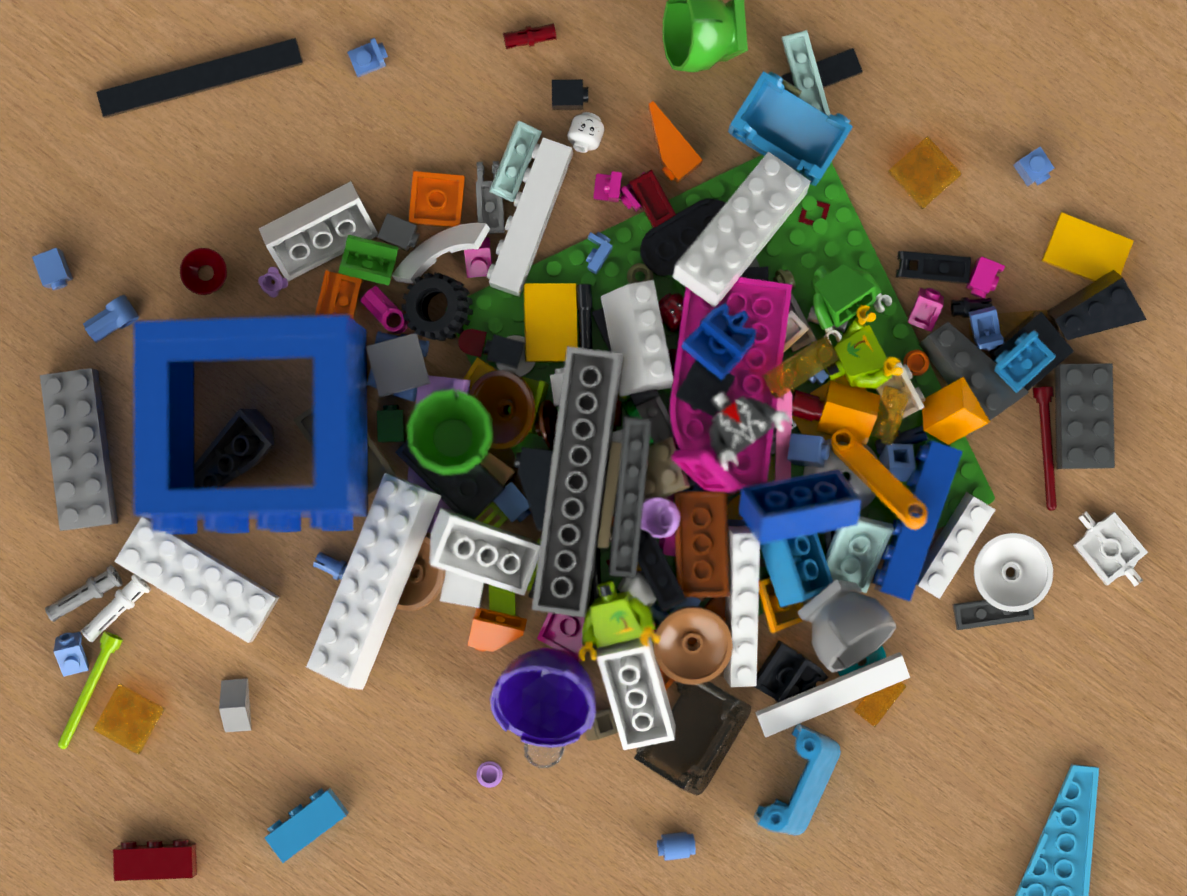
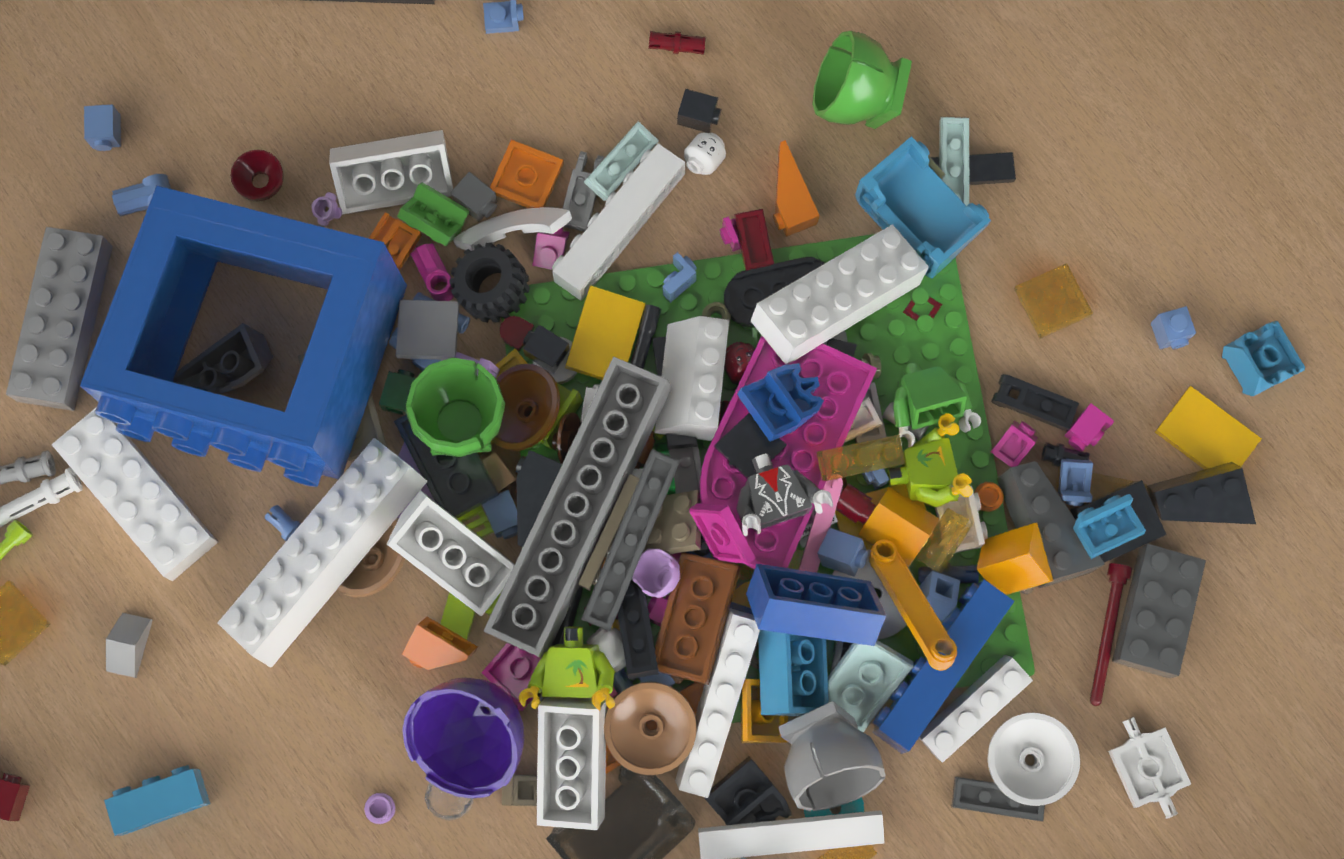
camera: 15 degrees right, 10 degrees down
(461, 590) = (417, 590): white head -> none
(607, 187) = (711, 215): dark pink bracket -> none
(1117, 169) = (1262, 358): none -> dark azure slope

